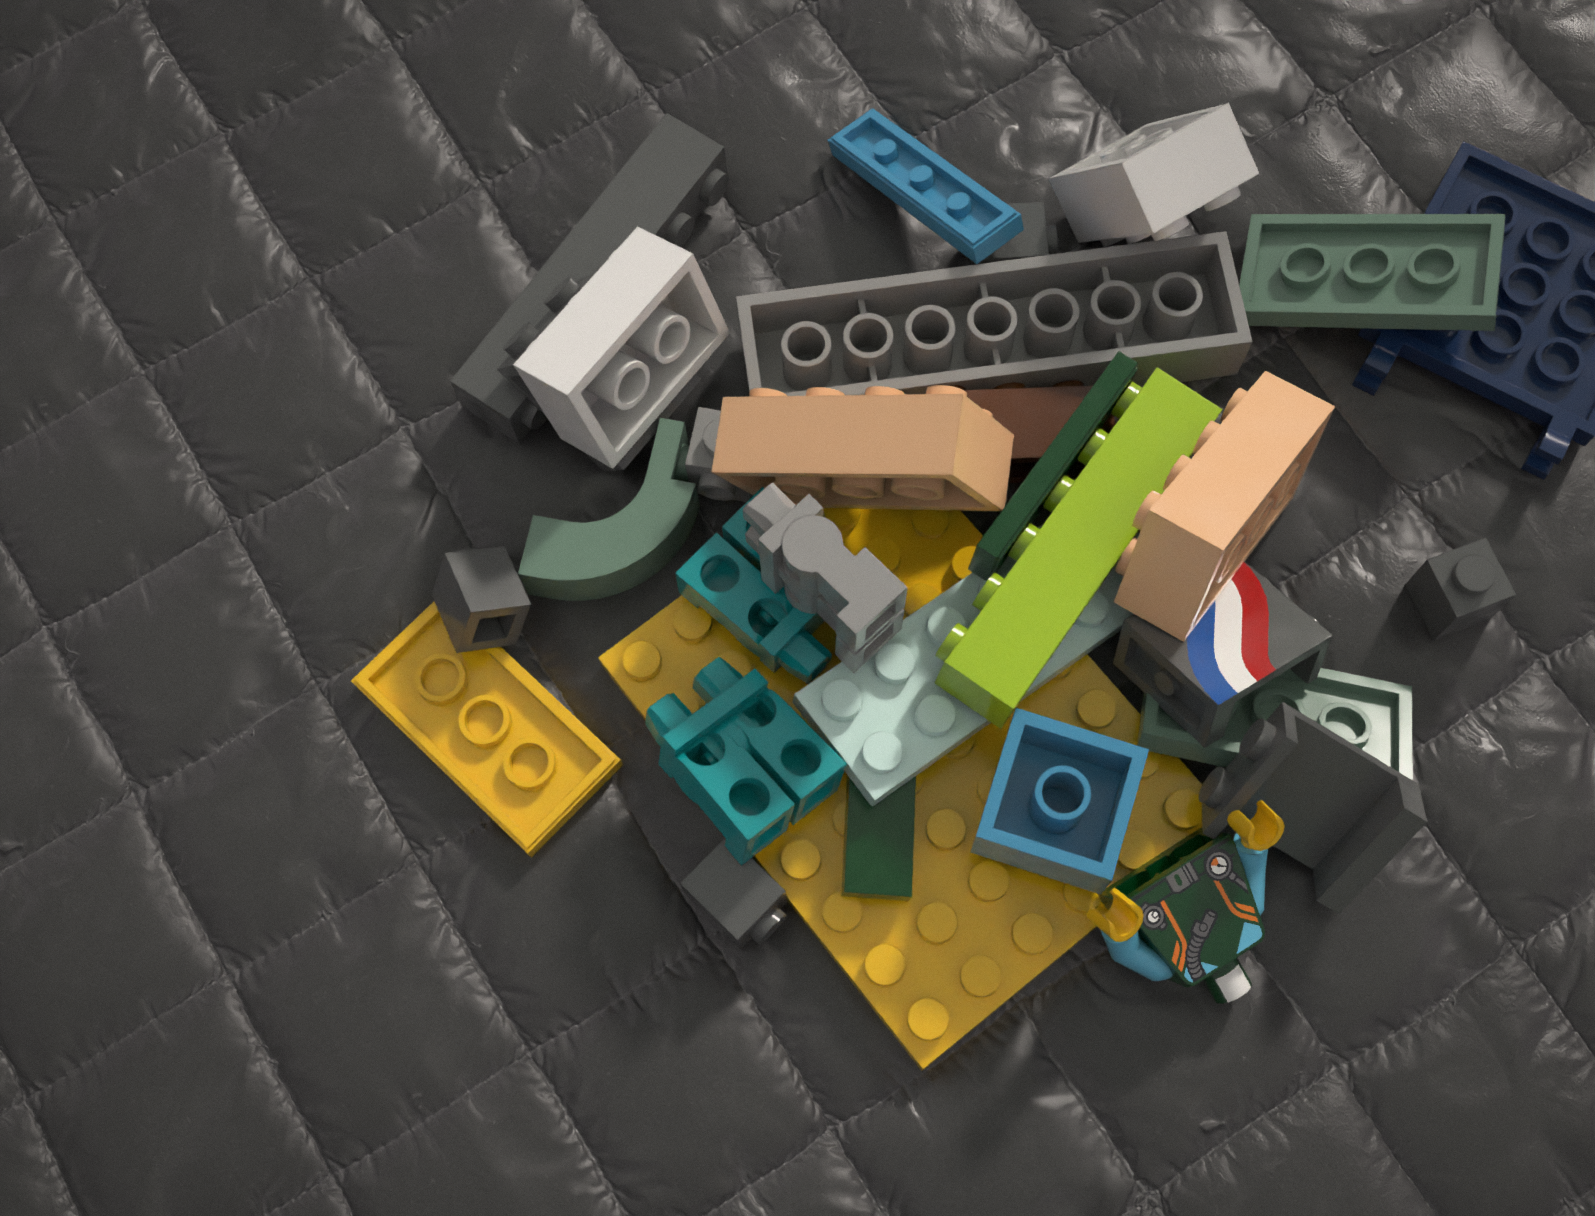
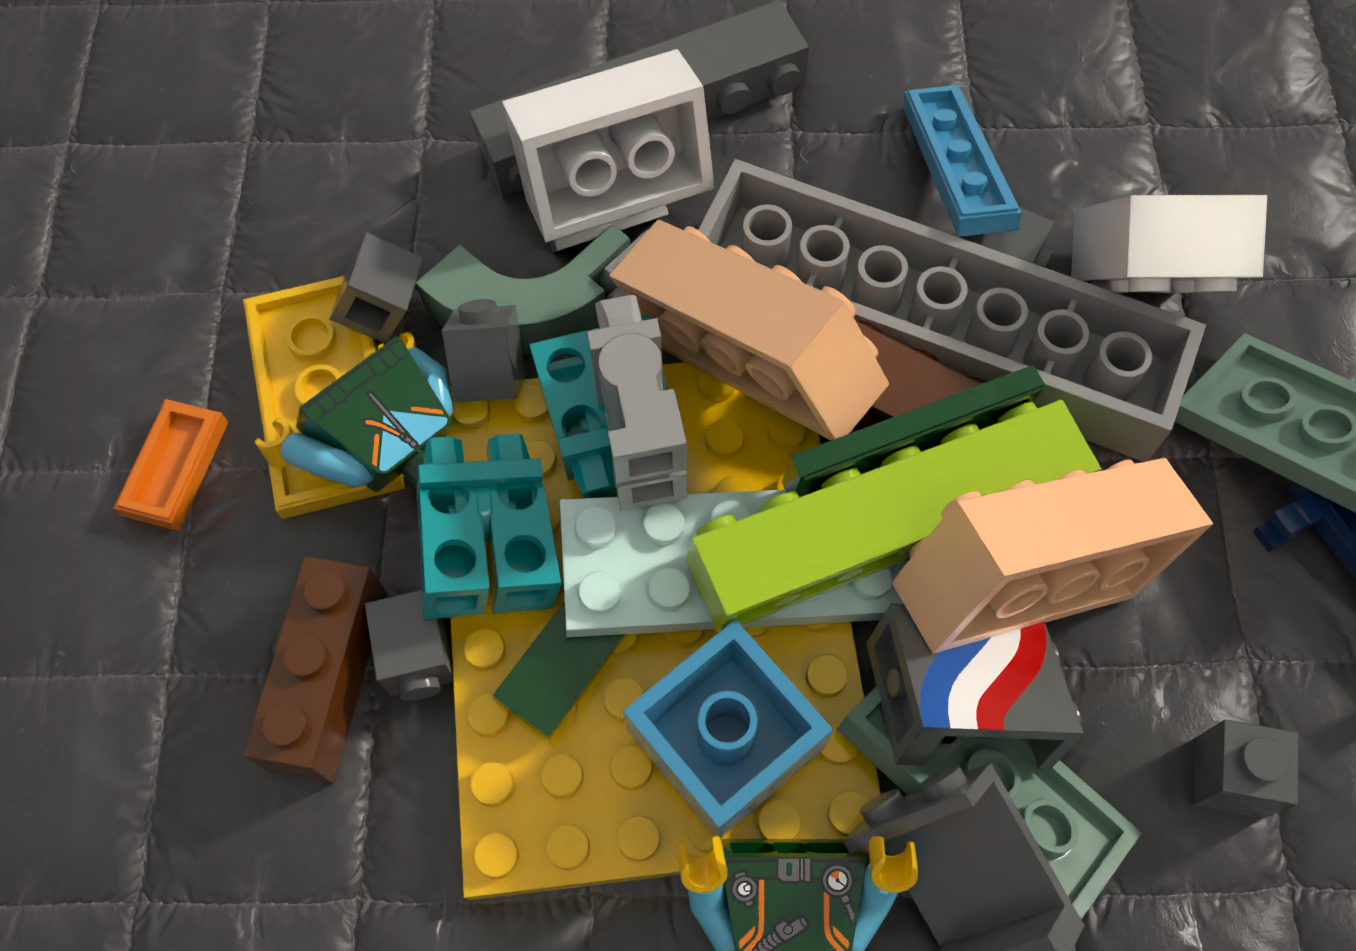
camera: 30 degrees right, 5 degrees down
(395, 870) = (171, 465): none -> orange tile
(573, 724) = (369, 420): none -> torso
(629, 601) = (484, 351): none -> dark grey brick
(672, 963) = (315, 672): none -> reddish brown brick

